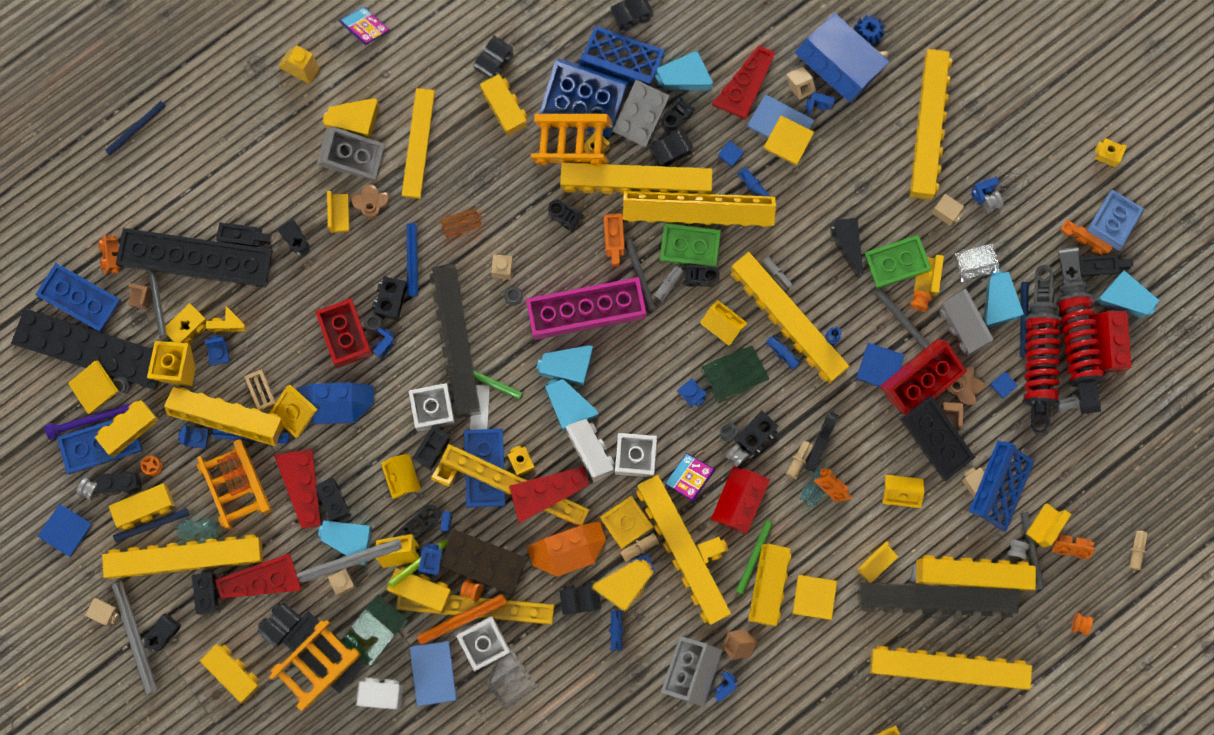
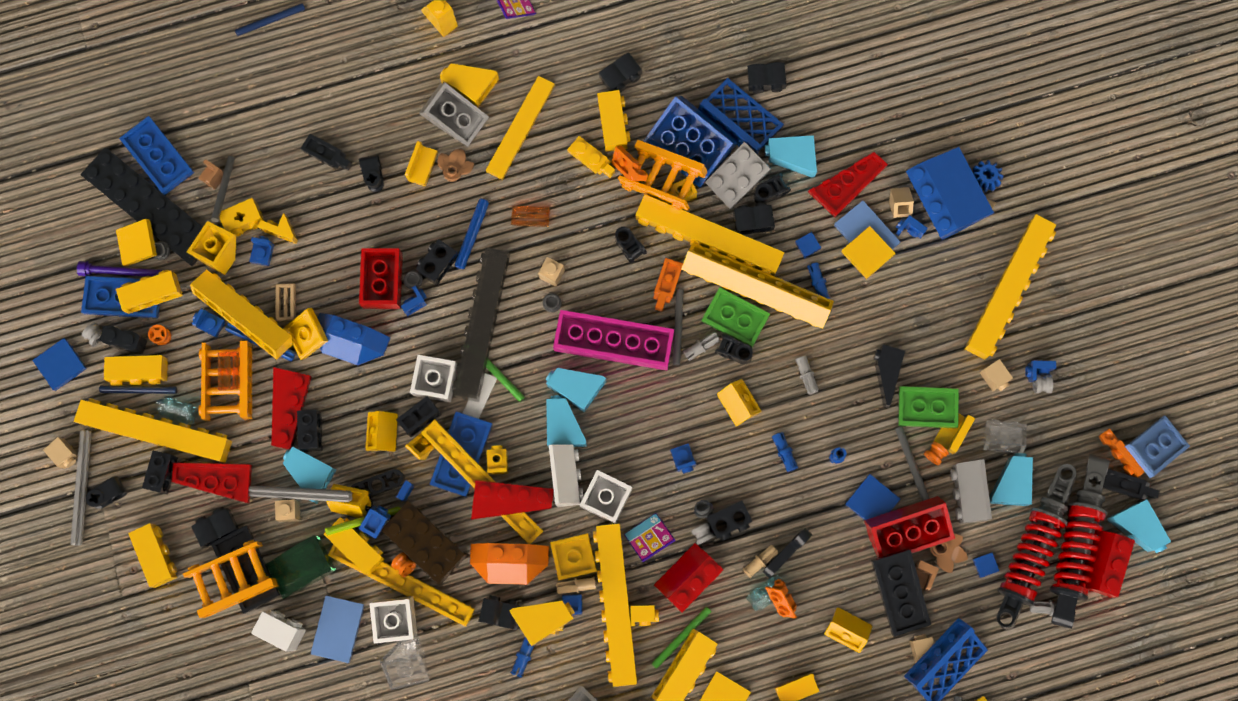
camera: 25 degrees right, 0 degrees up
(107, 247) = (197, 134): orange hinge -> none
(194, 257) = (275, 157): black plate -> none
(462, 619) = (383, 588): orange axle -> none
(496, 146) = (591, 157): none -> yellow hinge
(535, 141) = (628, 165): none -> orange hinge
(734, 374) = (730, 455): clear green slope -> none
(789, 318) = (803, 422): yellow brick -> none
(1024, 304) = (1035, 497): dark blue bar -> none
(1110, 158) = (1170, 380): yellow brick -> none

